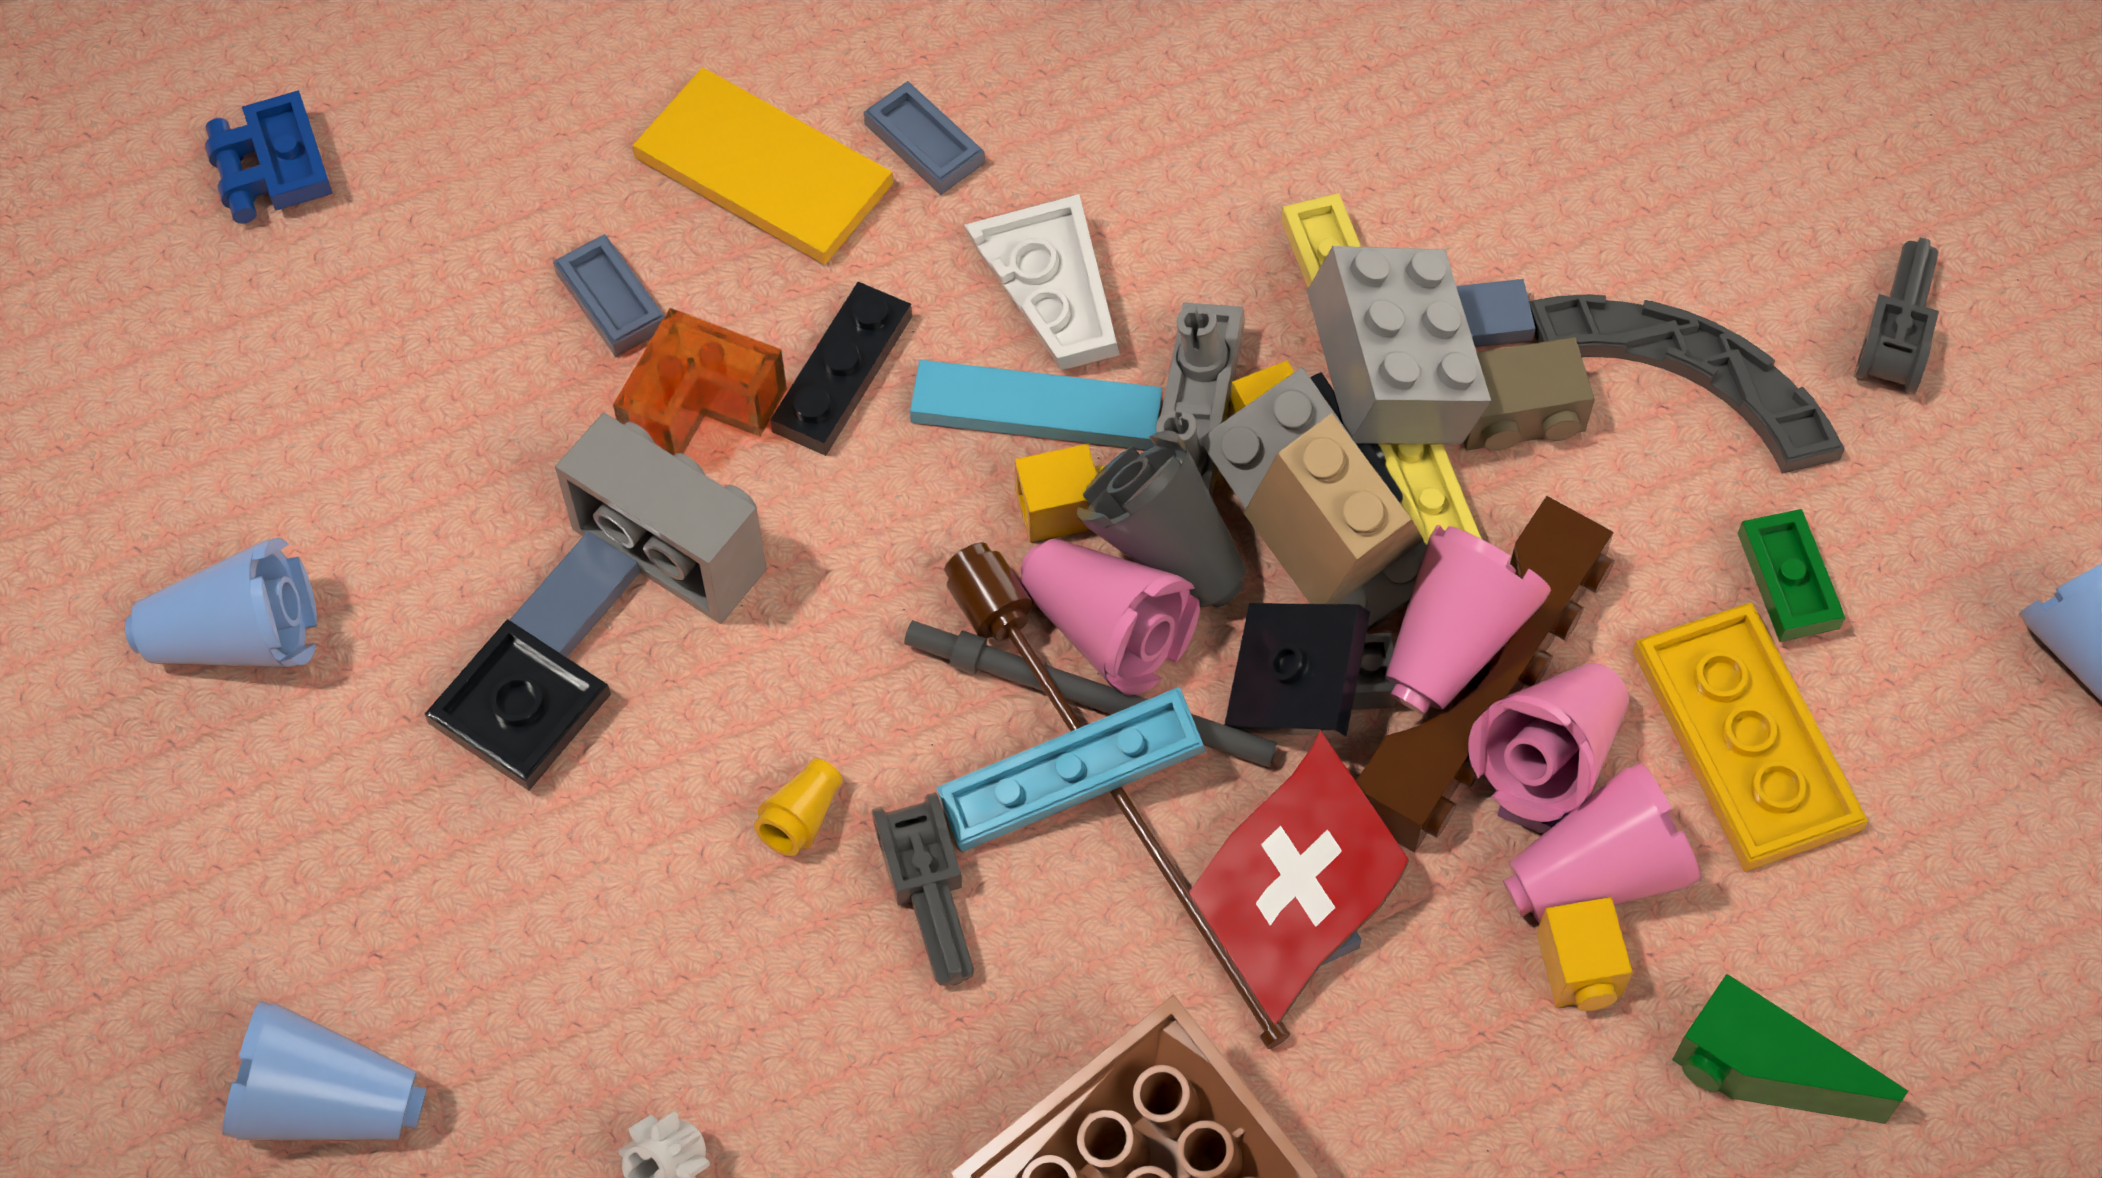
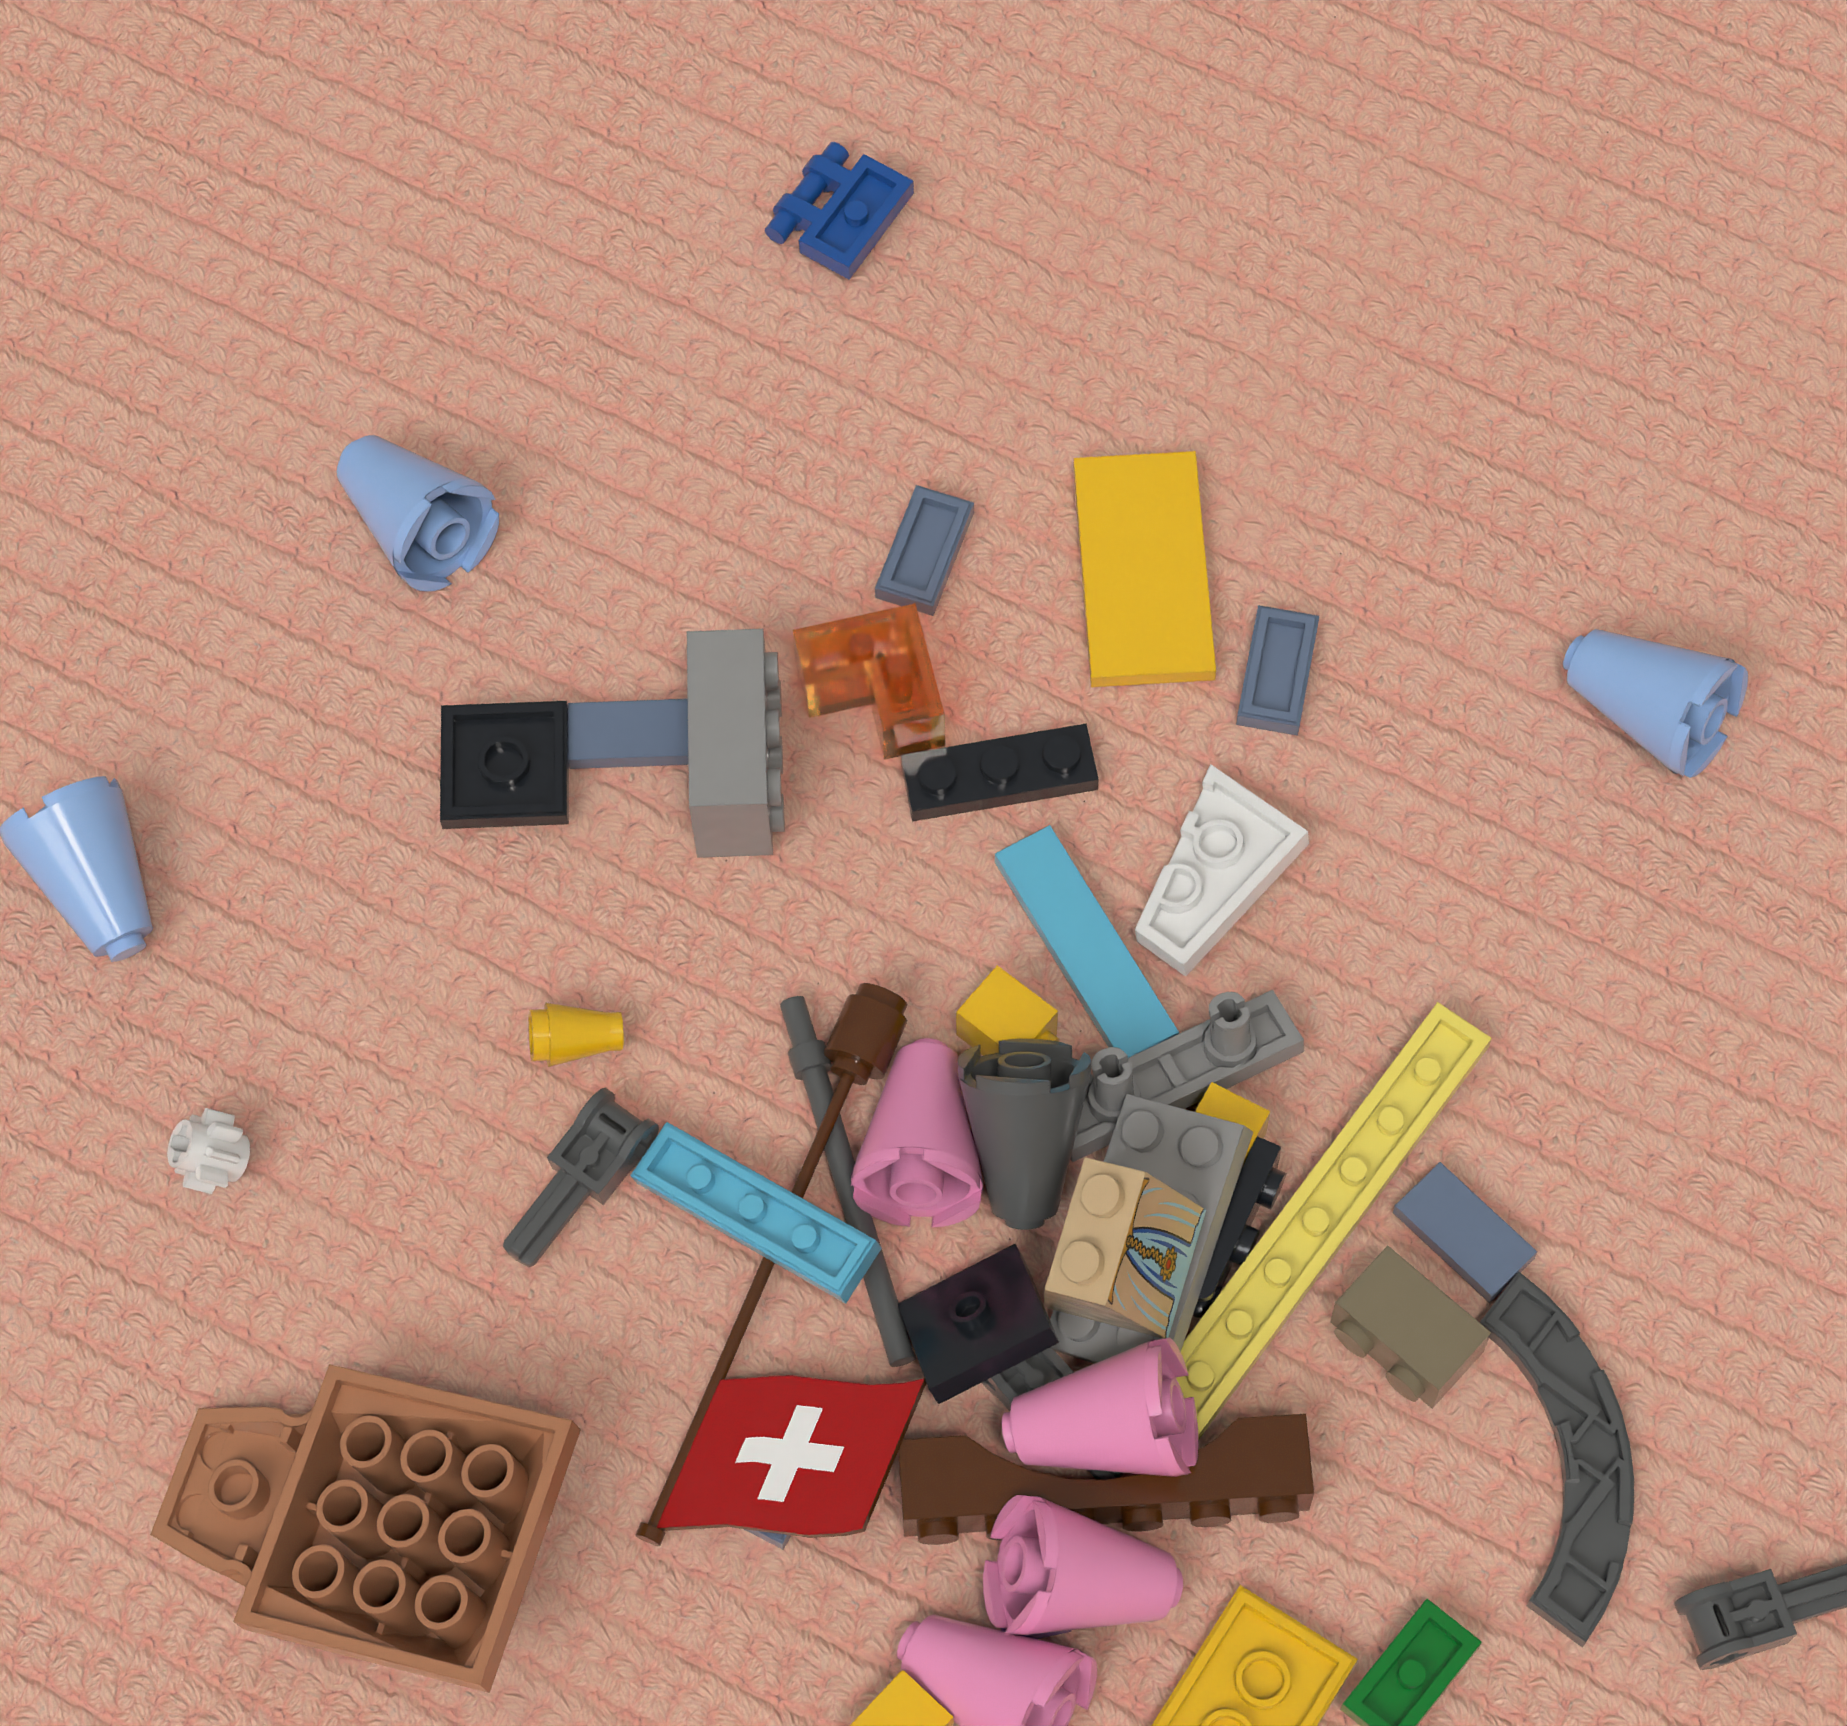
camera: 55 degrees right, 5 degrees up
(1398, 345) = (1349, 1189): light grey brick -> none

